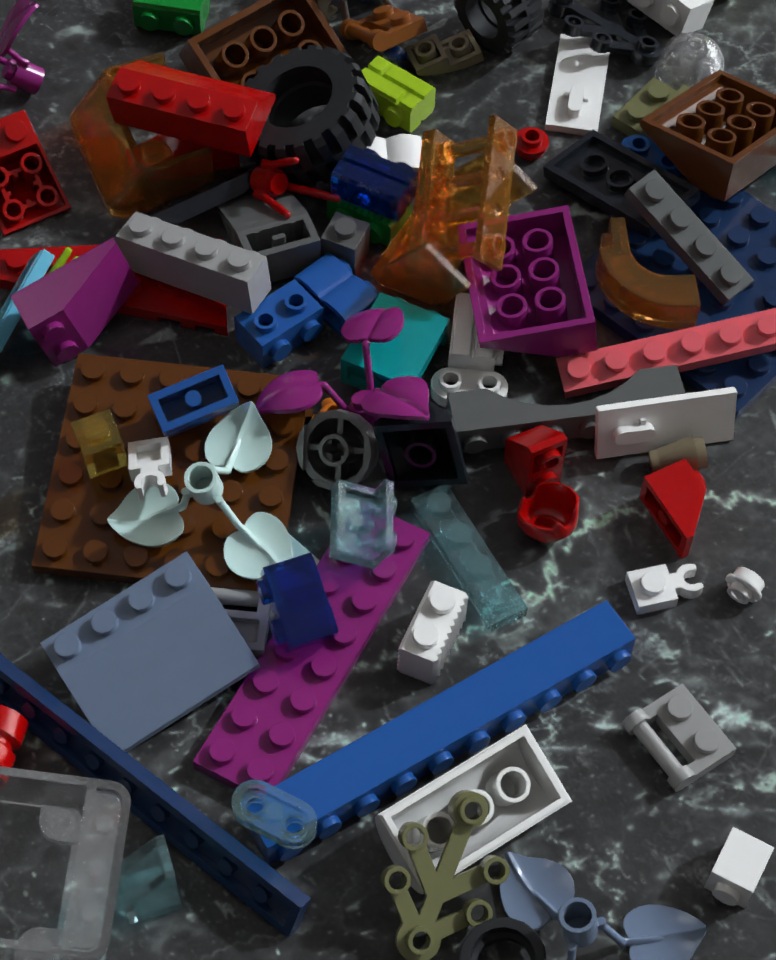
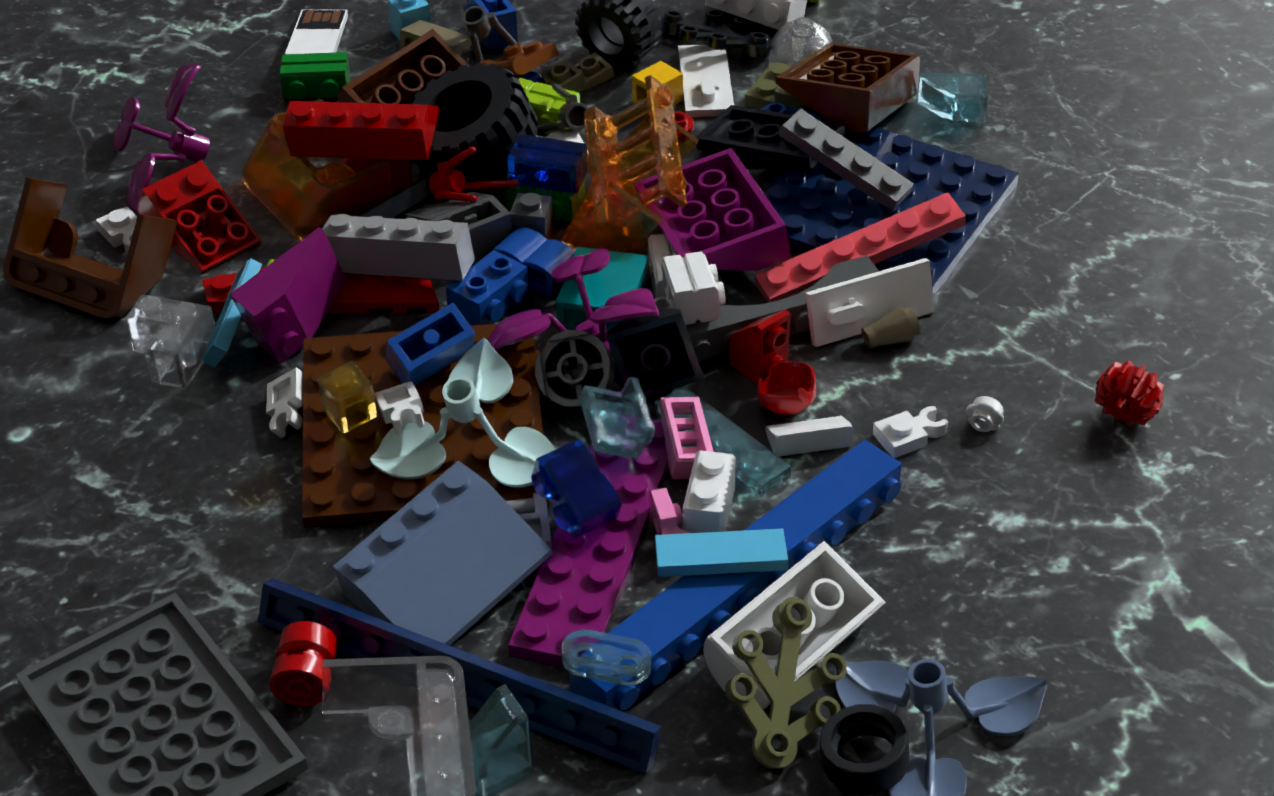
camera: 10 degrees left, 15 degrees down
(45, 421) = (284, 400): none -> white plate
(384, 648) = (665, 515): none -> bright pink plate
(416, 118) = (570, 114): none -> dark grey plant
(418, 585) = (682, 458): none -> bright pink slope
(421, 711) = (721, 552): none -> medium azure tile
(478, 377) = (693, 287): none -> white brick
(522, 90) = (664, 74): none -> yellow brick
(558, 570) = (810, 436): none -> white slope
(639, 293) = (817, 207): clear orange arch -> none
(675, 502) = (899, 362): red slope -> none
(688, 729) = (967, 541): light grey plate -> none
(738, 868) = (1059, 629): white brick -> none

